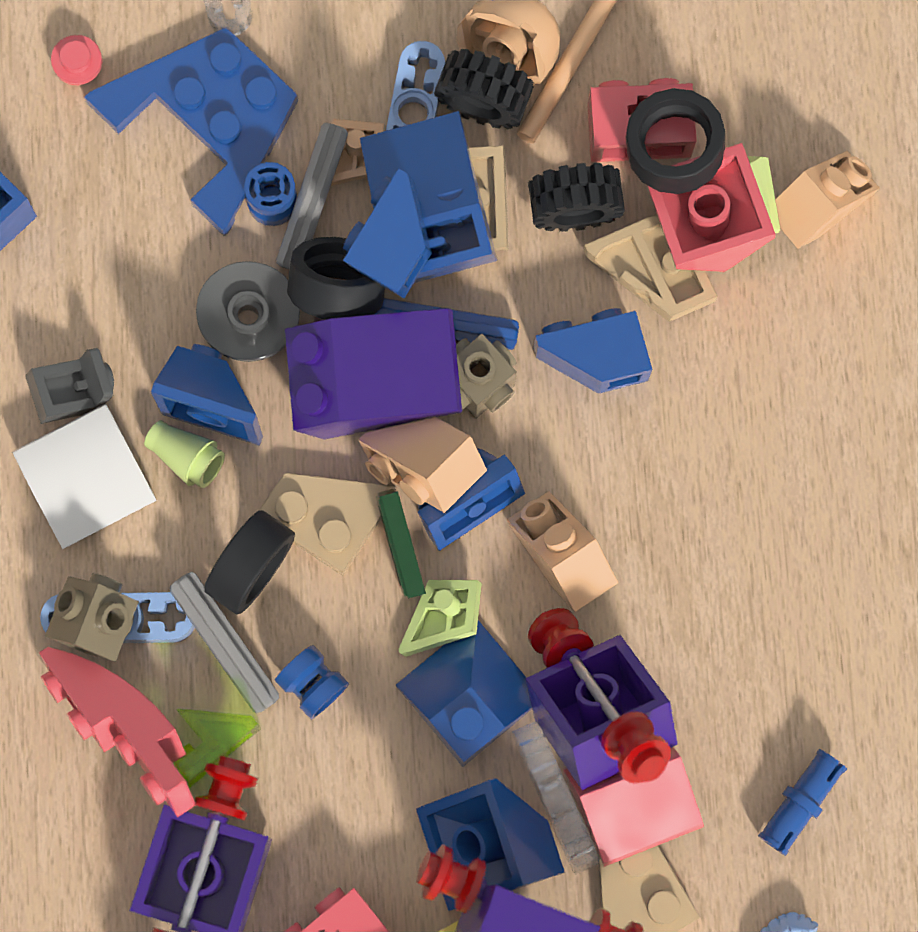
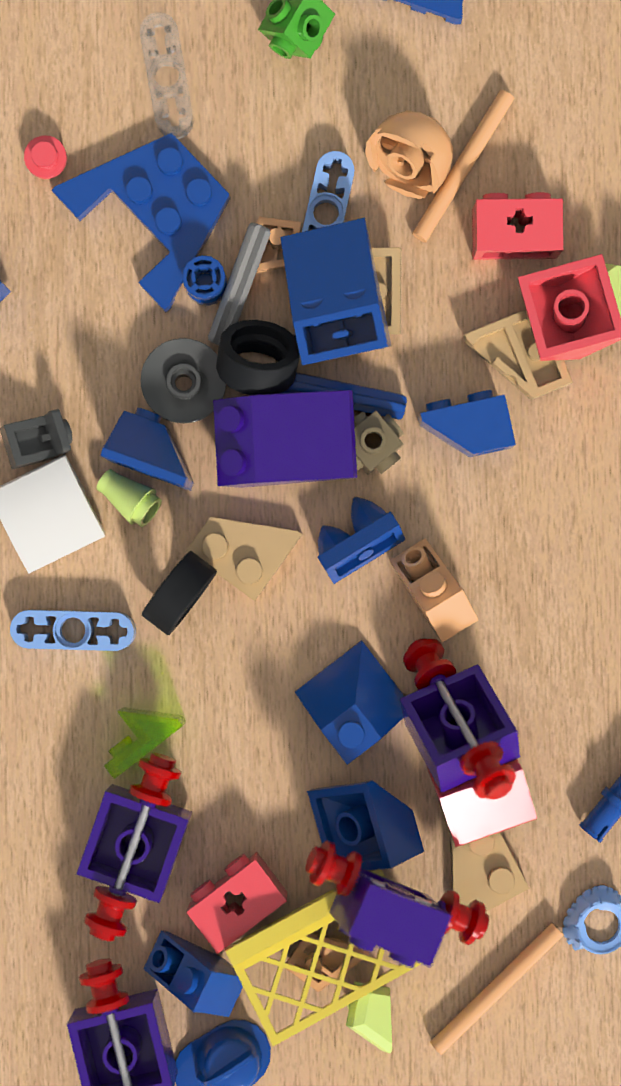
camera: 10 degrees right, 10 degrees up
(92, 616) = (50, 635): dark tan brick -> none
(121, 718) = (71, 718): coral slope -> none
(224, 642) = (157, 655): light grey axle -> none
(303, 673) = (220, 682): blue wheel -> none
(394, 238) = (307, 332): blue slope -> none
(400, 543) = (302, 581): dark green tile -> none
(425, 460) = (326, 514): light nougat slope -> none
(443, 615) = (335, 638): yellowish green piece -> none
(484, 89) = (386, 197): black tyre -> none
(556, 797) = (419, 789): clear beam -> none
(576, 197) = (460, 294): black tyre -> none
(670, 104) = (553, 219): black tyre -> none

